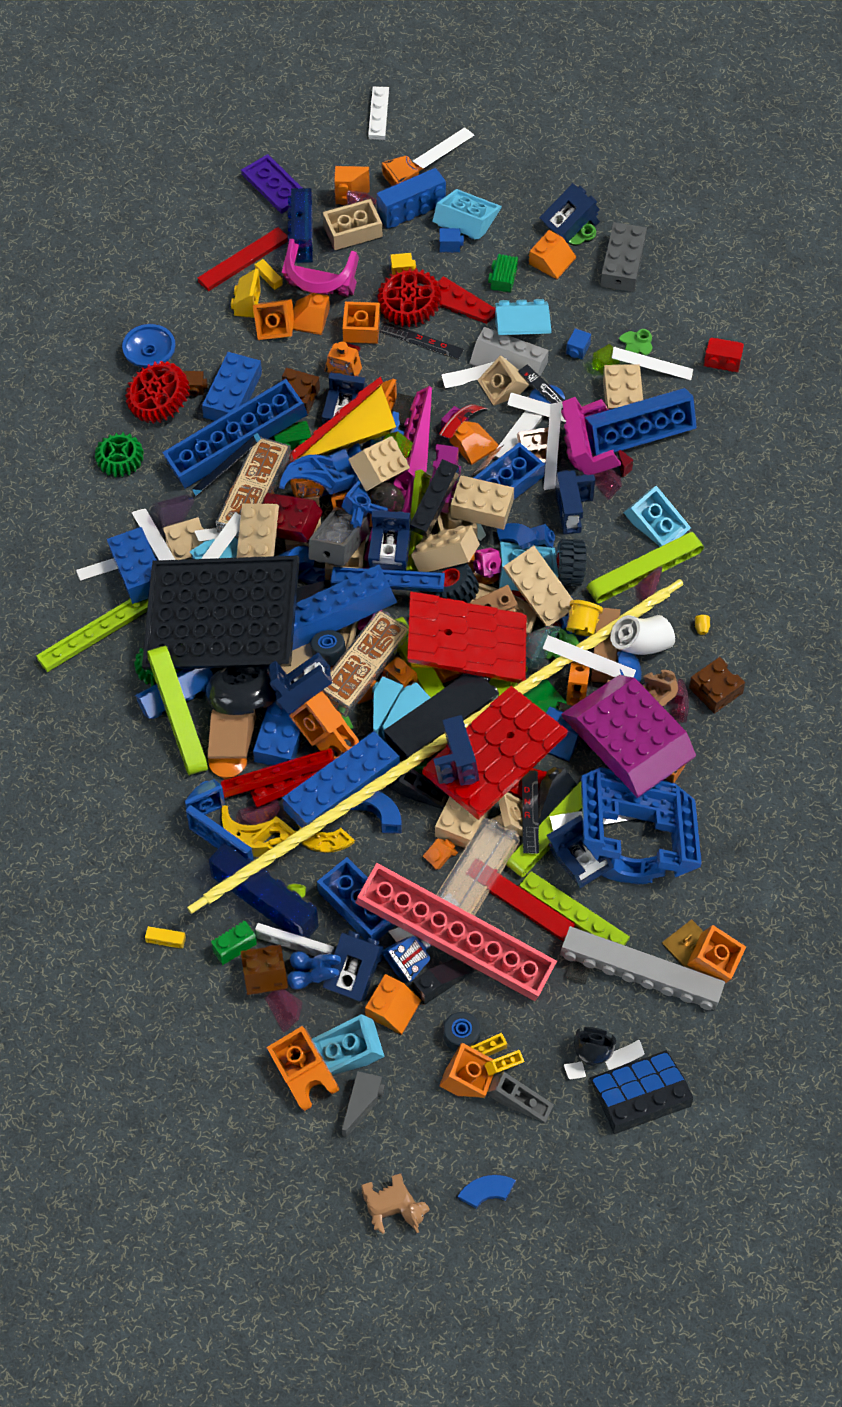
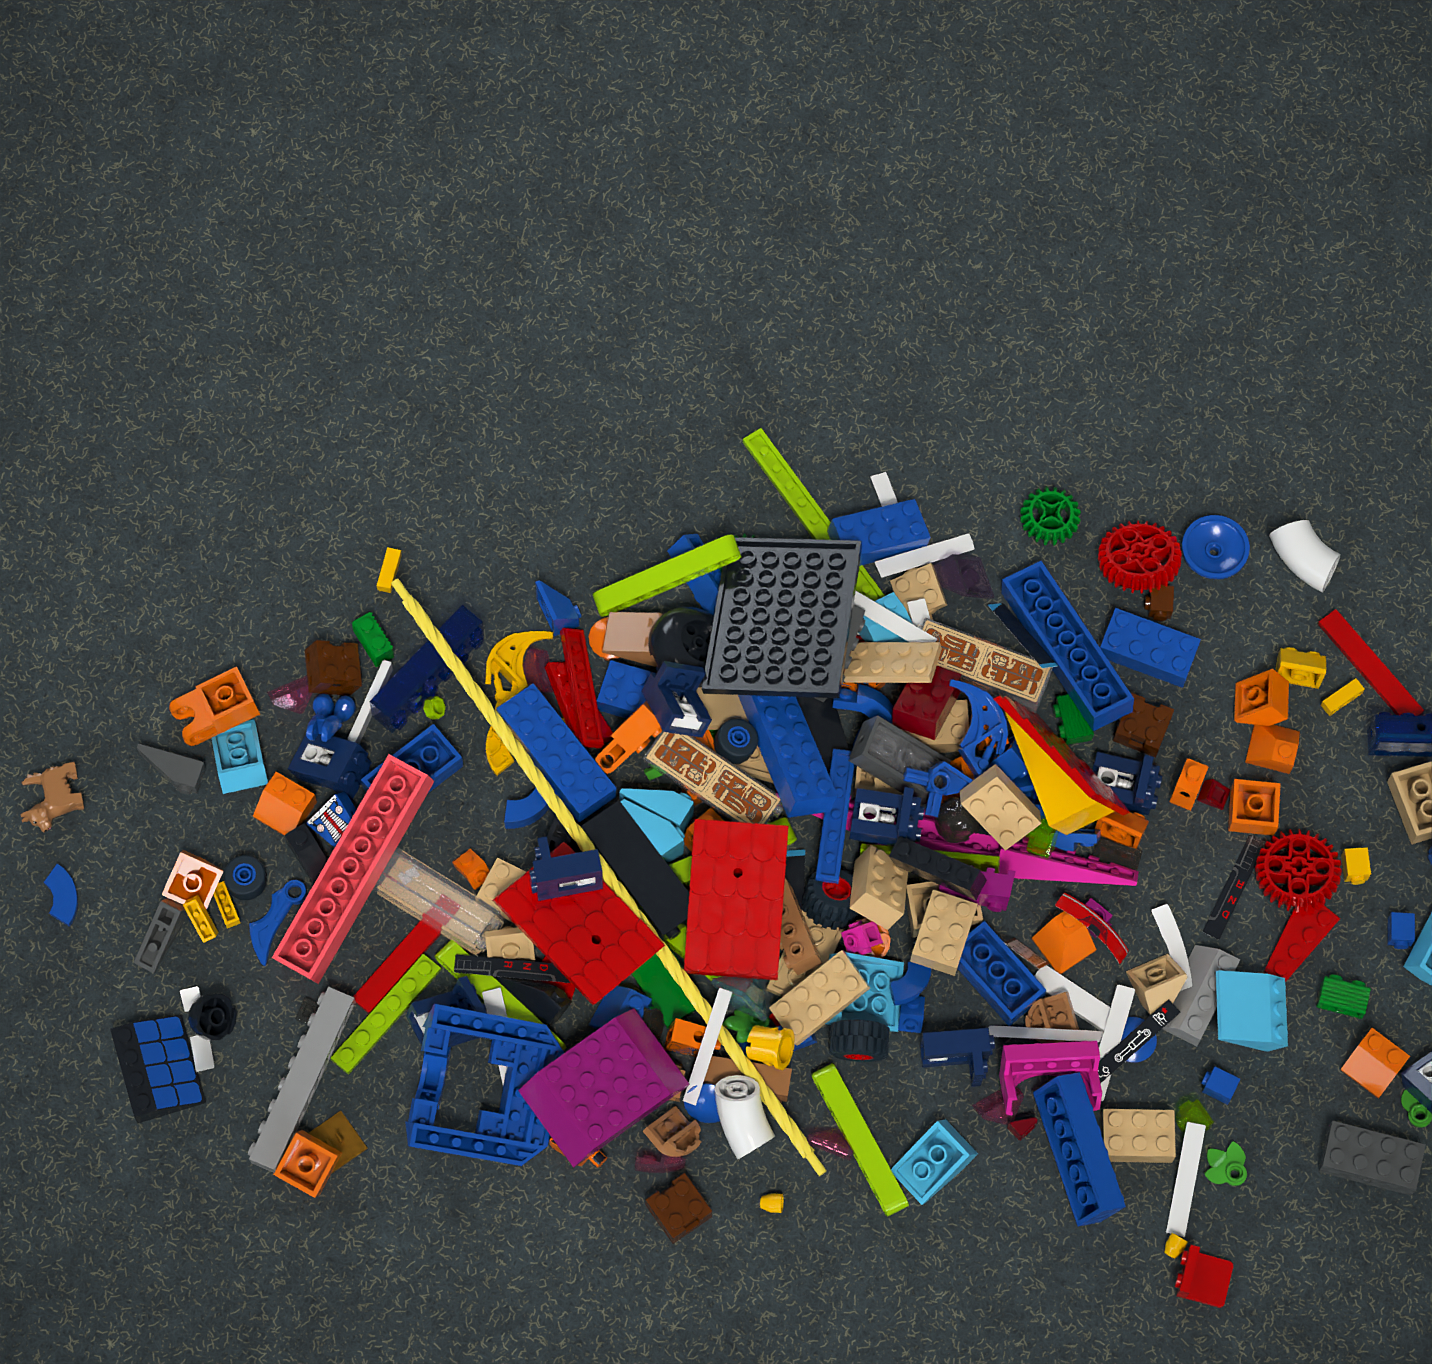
camera: 90 degrees right, 10 degrees up
(156, 289) = (1305, 553): none -> white brick
(215, 833) = (501, 623): blue tile -> none
(320, 281) = (1321, 778): dark pink piece -> none
(506, 1015) = (264, 930): none -> blue piece
(702, 371) = (1175, 1245): none -> yellow hose

